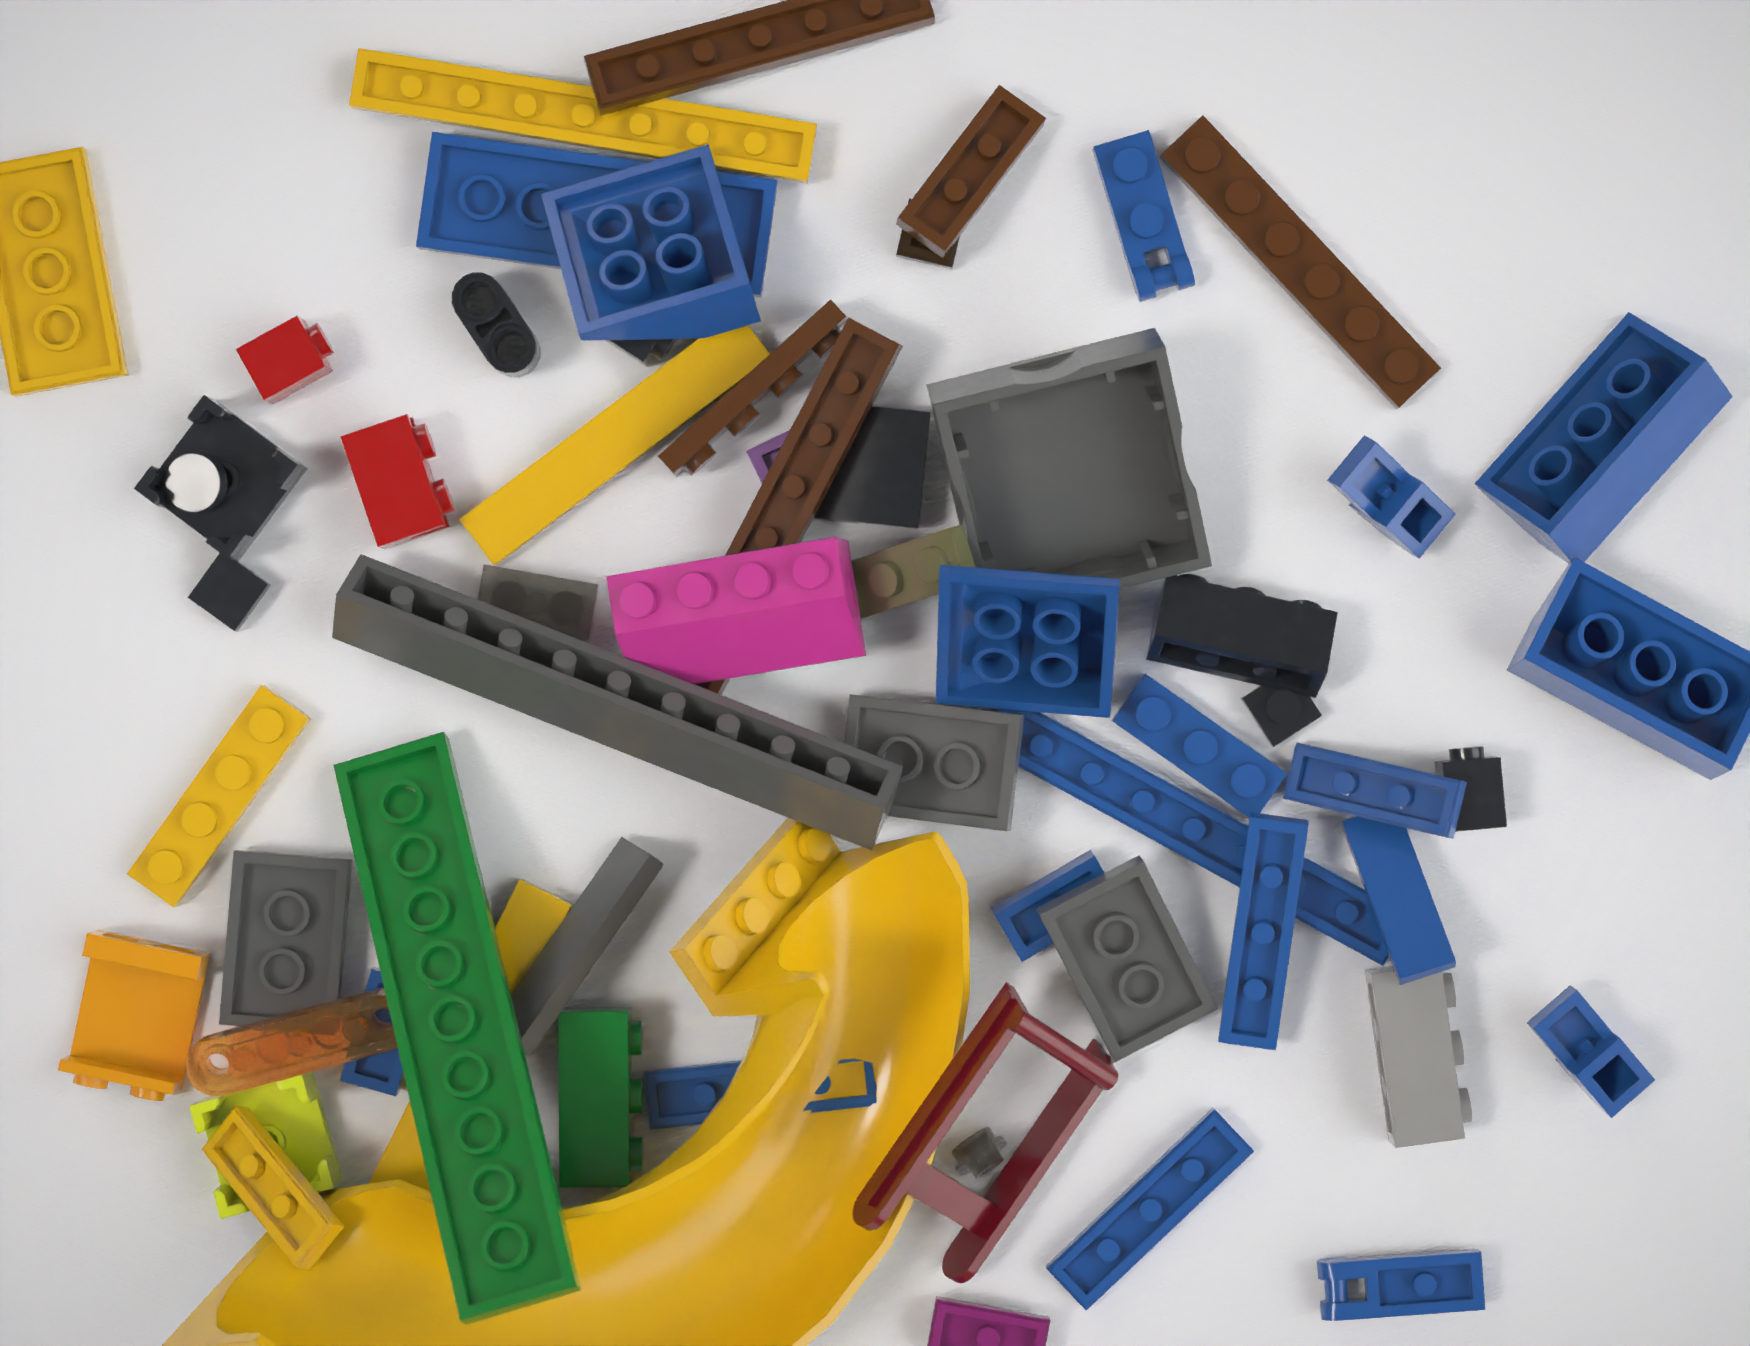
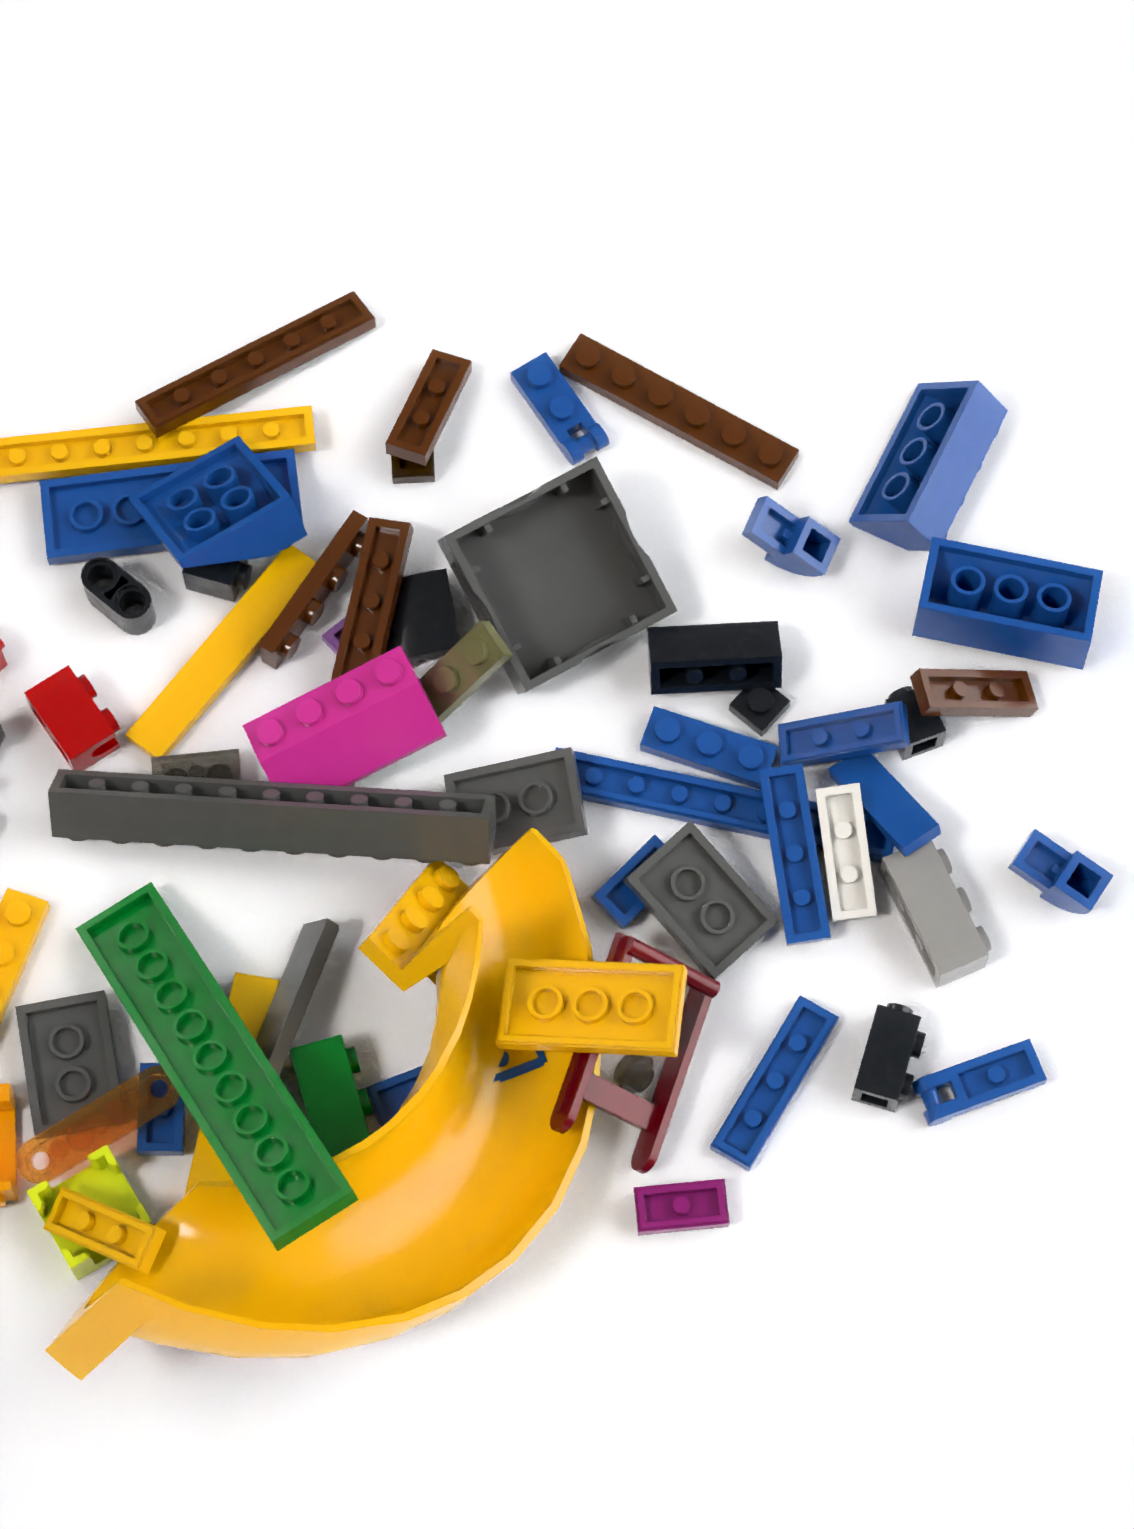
camera: 15 degrees left, 20 degrees down
(945, 1089) = (592, 1007): none -> yellow tile
(1026, 641) = (559, 686): blue slope -> none
(1298, 1222) = (886, 1057): none -> black brick
(1329, 947) = (846, 852): none -> white plate
(1558, 784) = (973, 693): none -> reddish brown plate

